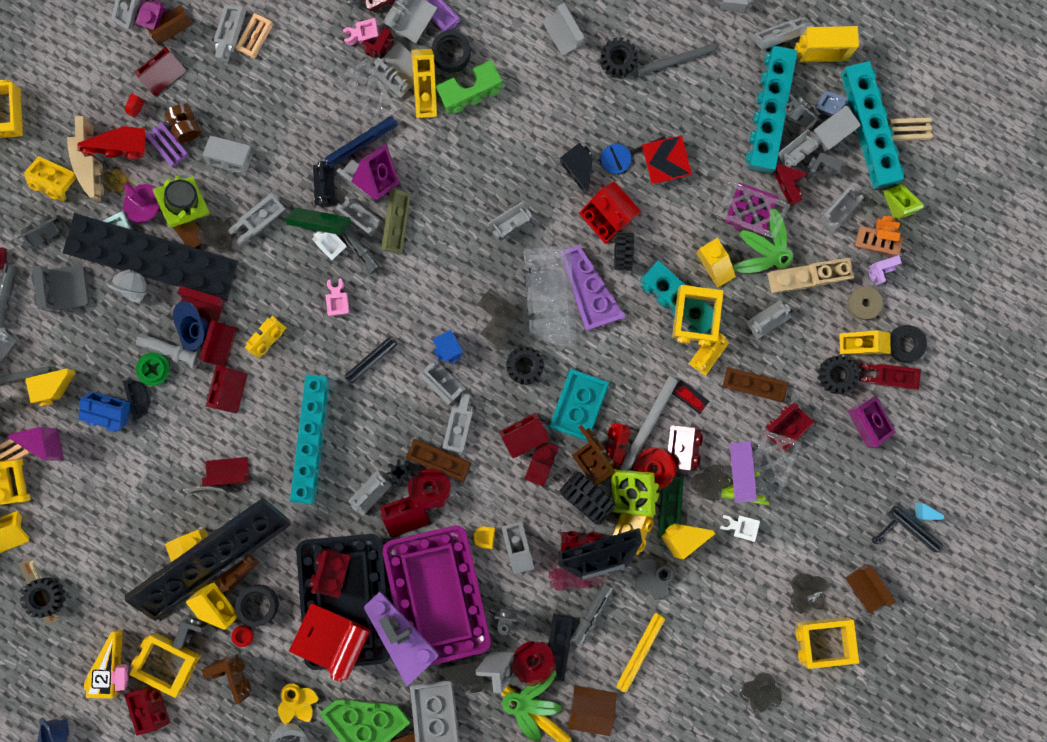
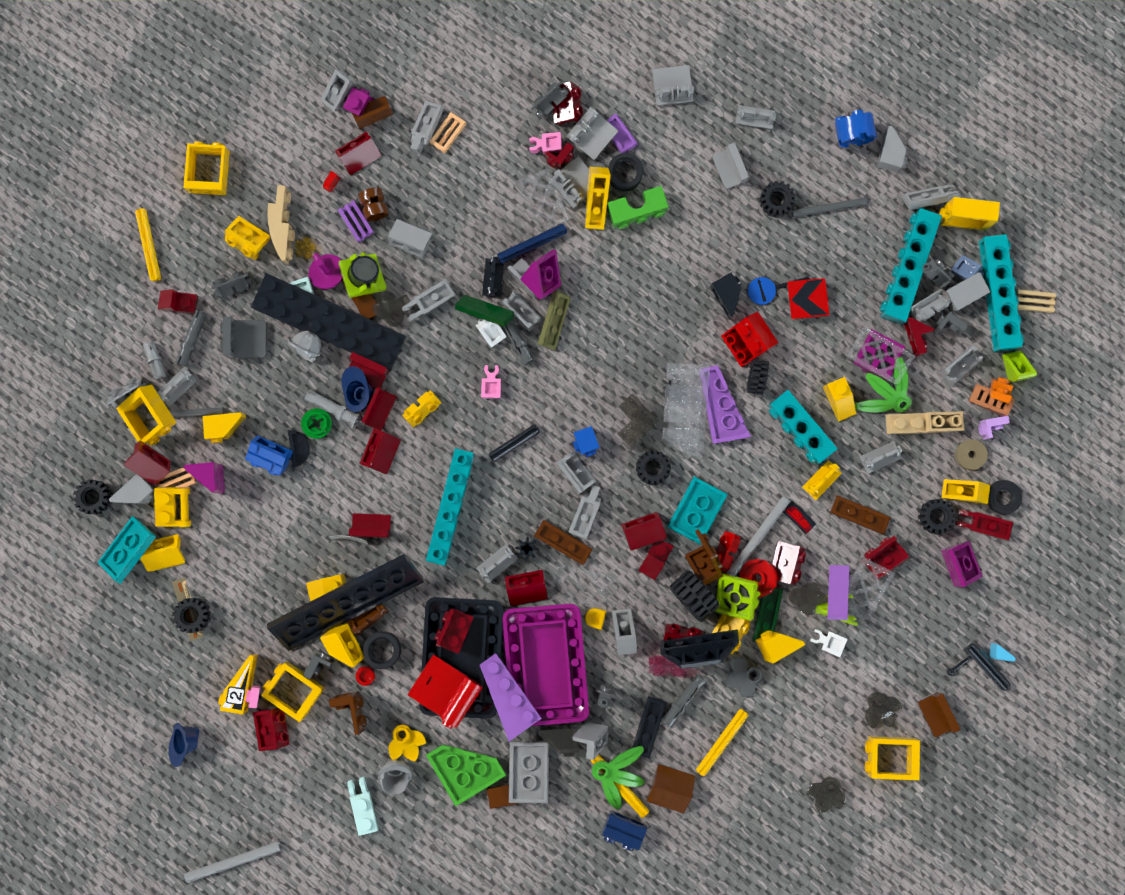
camera: 10 degrees right, 0 degrees up
(120, 141) = (318, 214): red slope -> none
(391, 628) = (503, 685): dark grey bracket -> none
(432, 498) = (548, 576): dark red plate -> none
(509, 220) = (655, 334): light grey hinge -> none
(538, 673) = (627, 747): dark red plate -> none
(702, 294) = (822, 425): yellow window -> none

